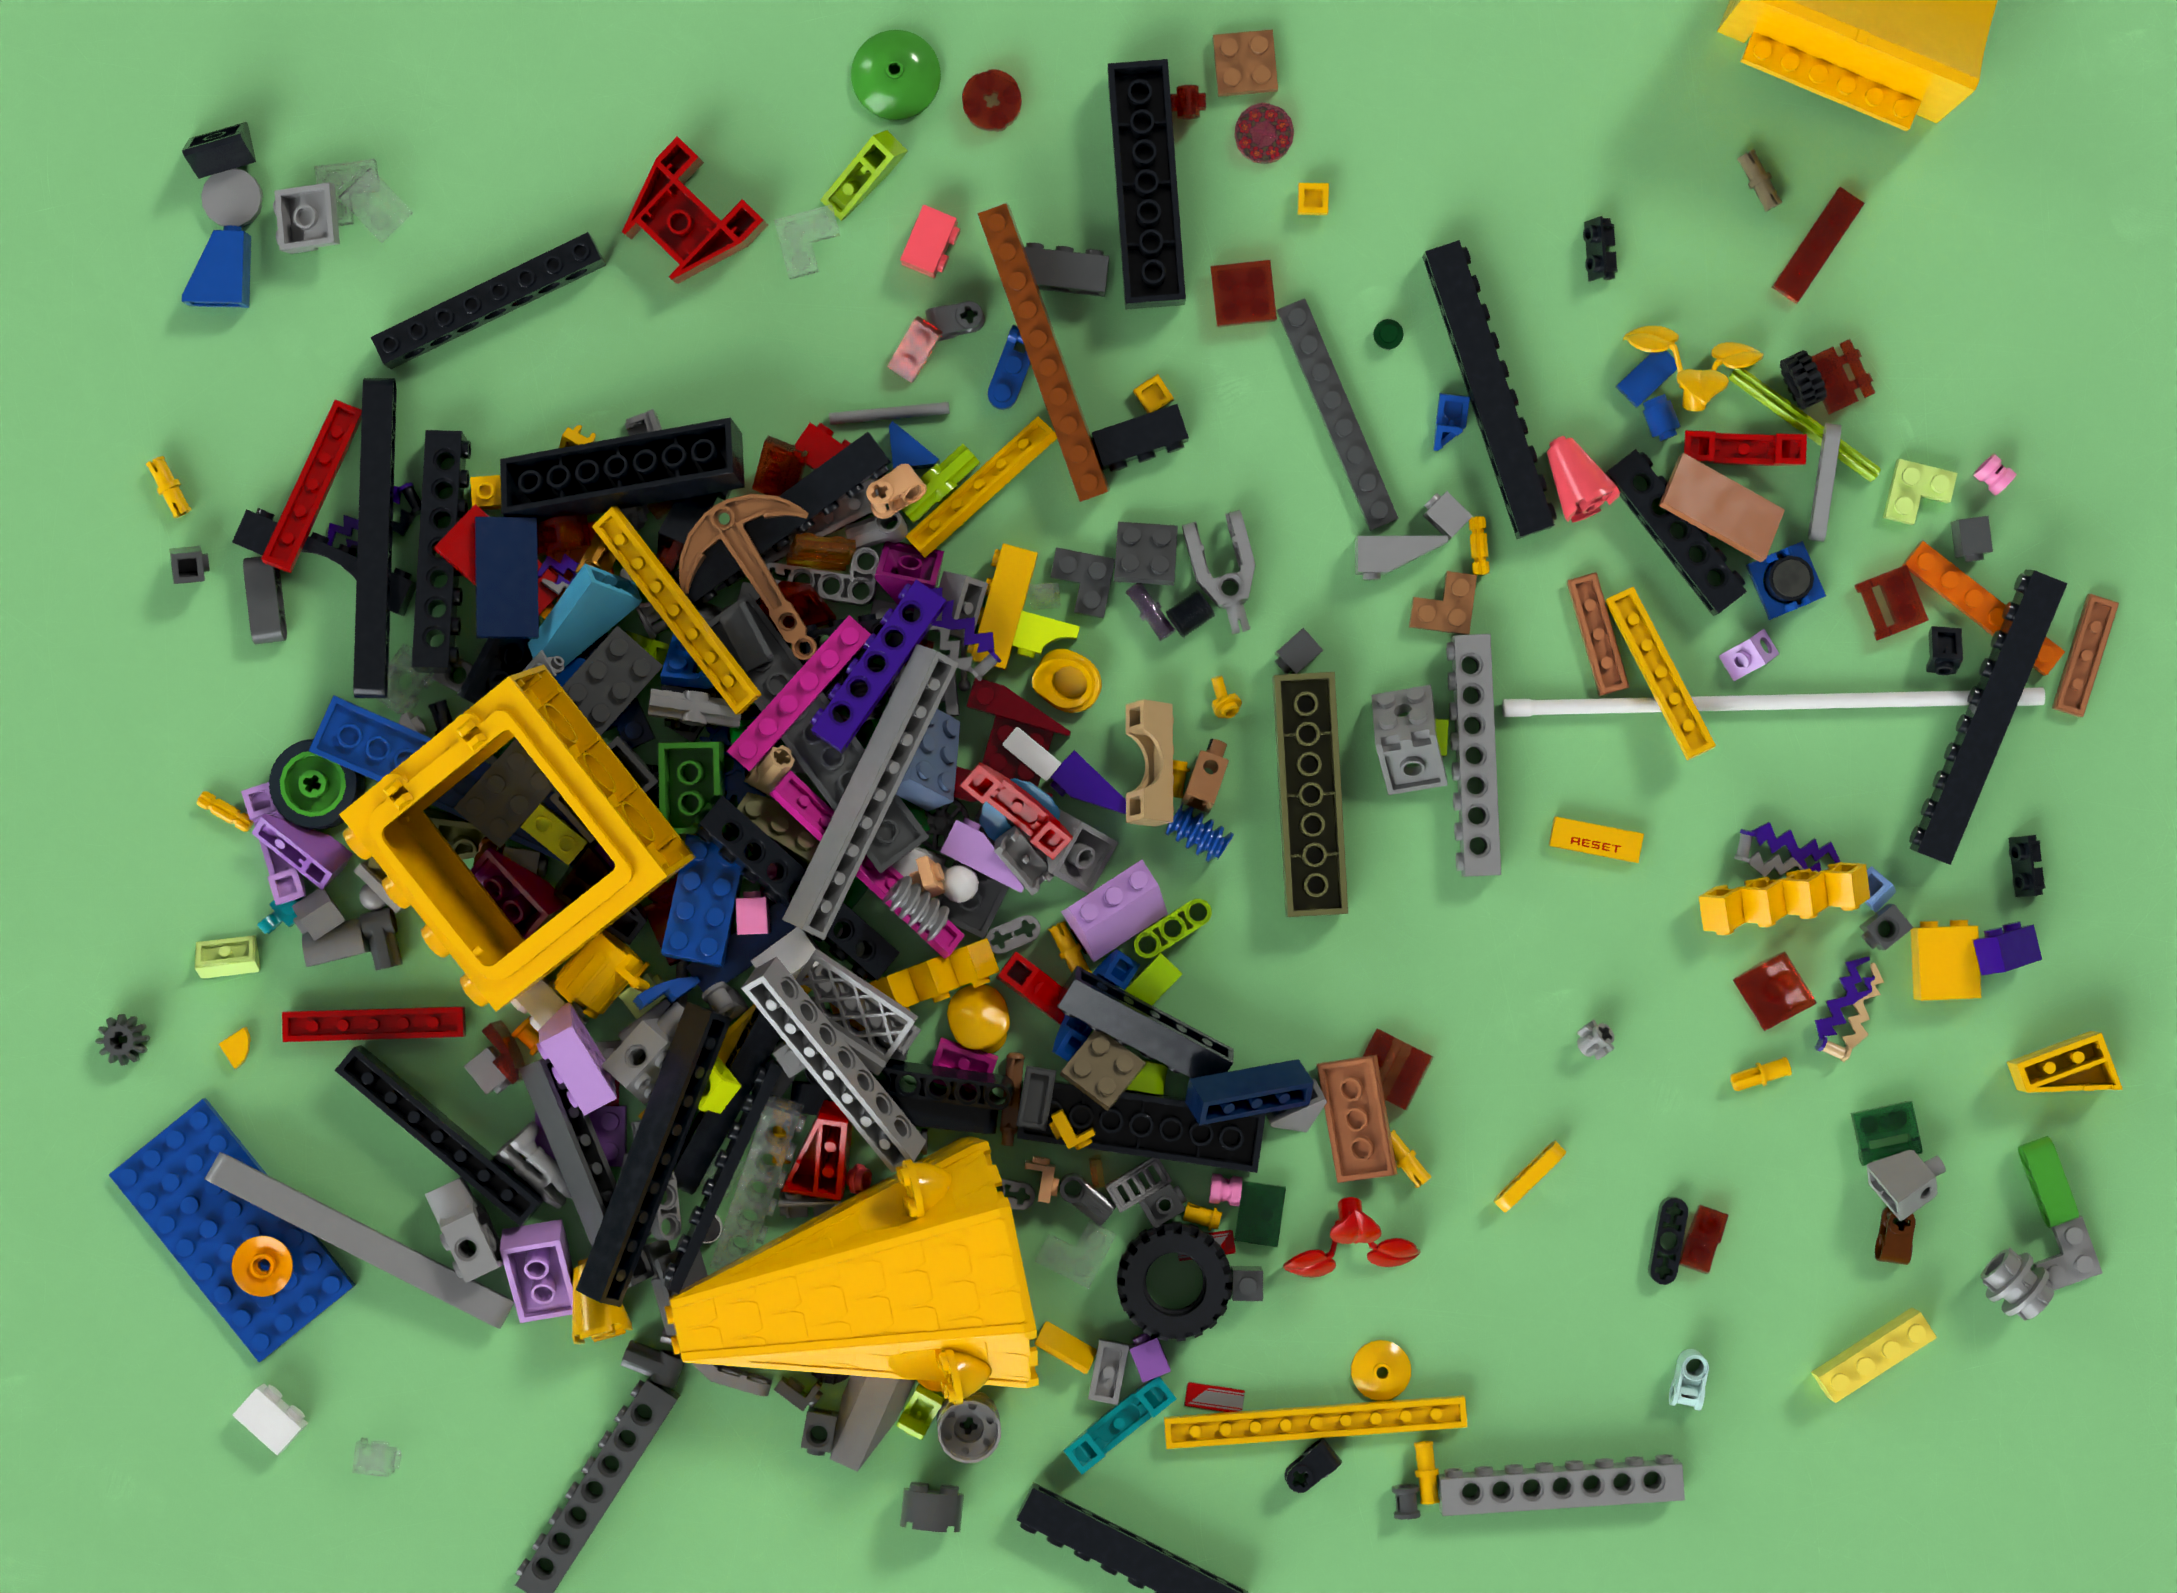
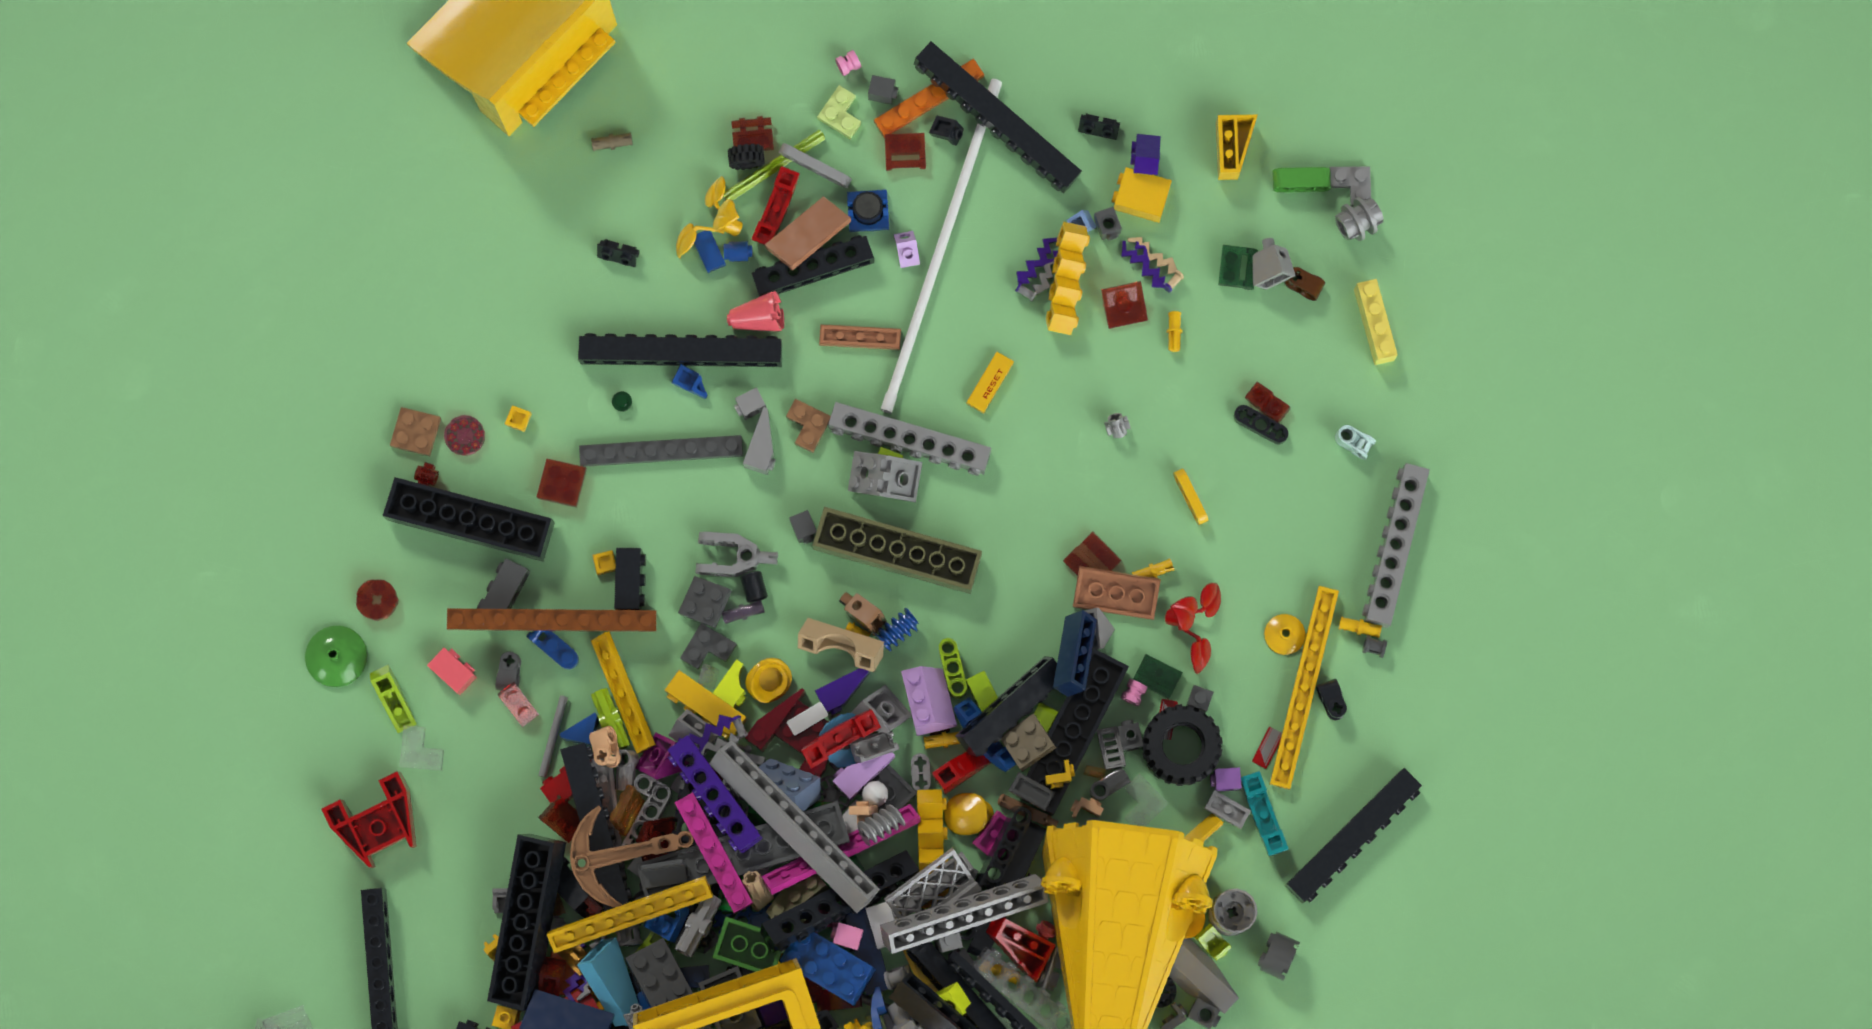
camera: 65 degrees left, 10 degrees down
(1202, 1216) = (1146, 713): yellow pin -> none
(1225, 705) = (820, 585): yellow plate -> none
(1479, 545) = (777, 391): yellow axle -> none
(1660, 673) = (898, 306): yellow plate -> none
(1818, 245) = (665, 120): clear red tile -> none
(2085, 655) = (980, 47): nougat tile -> none

